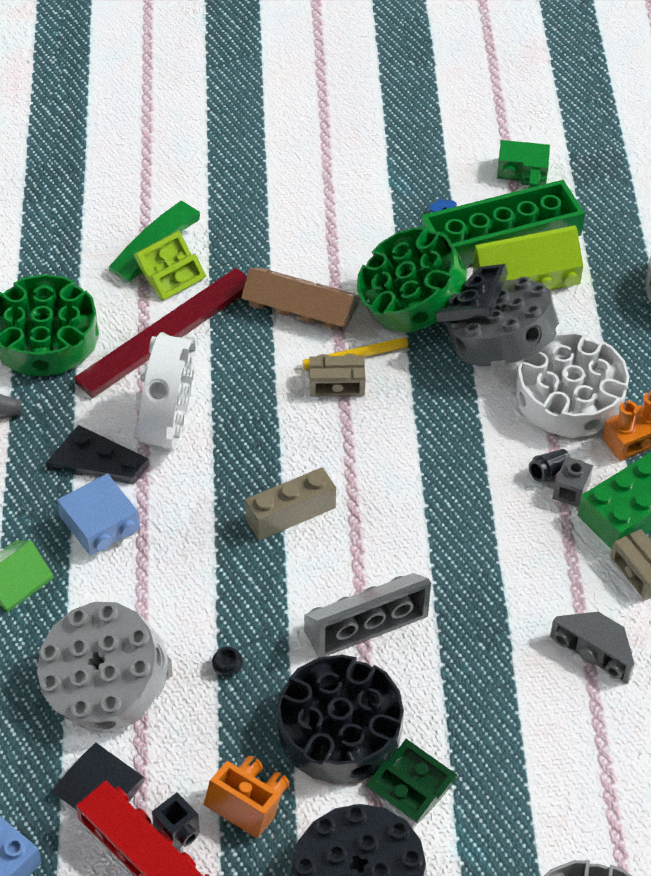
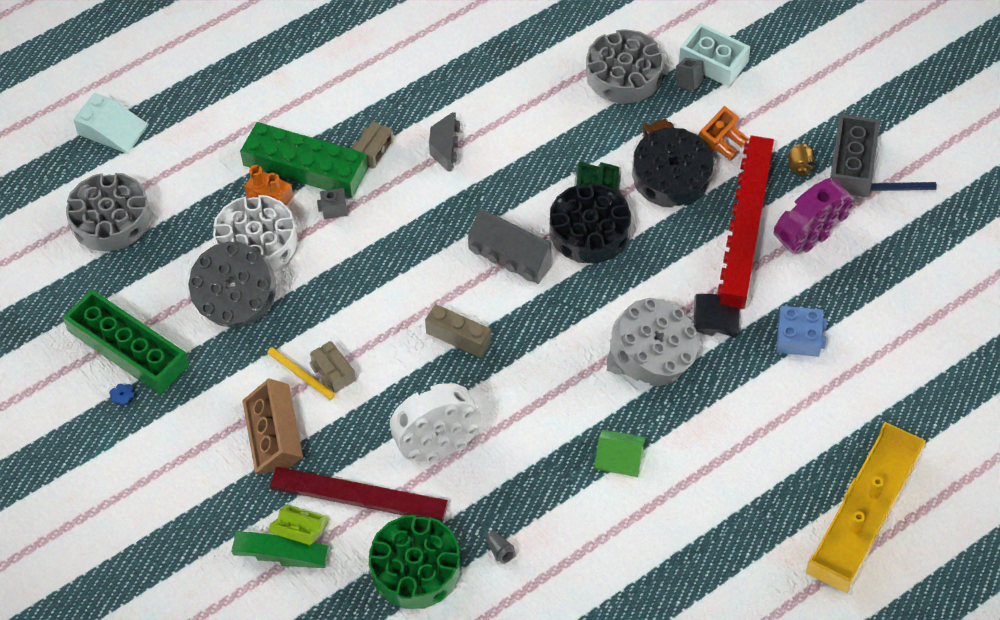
camera: 120 degrees left, 5 degrees up
(94, 454) = (497, 466): black wing -> none
(99, 514) = (545, 424): medium blue brick -> none
(177, 820) = (712, 258): black brick -> none
(227, 661) = (591, 303): black plate -> none
(243, 798) = (673, 238): orange brick -> none
(411, 279) = (228, 330): green brick -> none
(478, 296) = (228, 295): black wing -> none
(523, 162) = (43, 363): green hinge -> none
(543, 257) = (160, 308): lime slope -> none
(547, 465) = (326, 222): black cone -> none

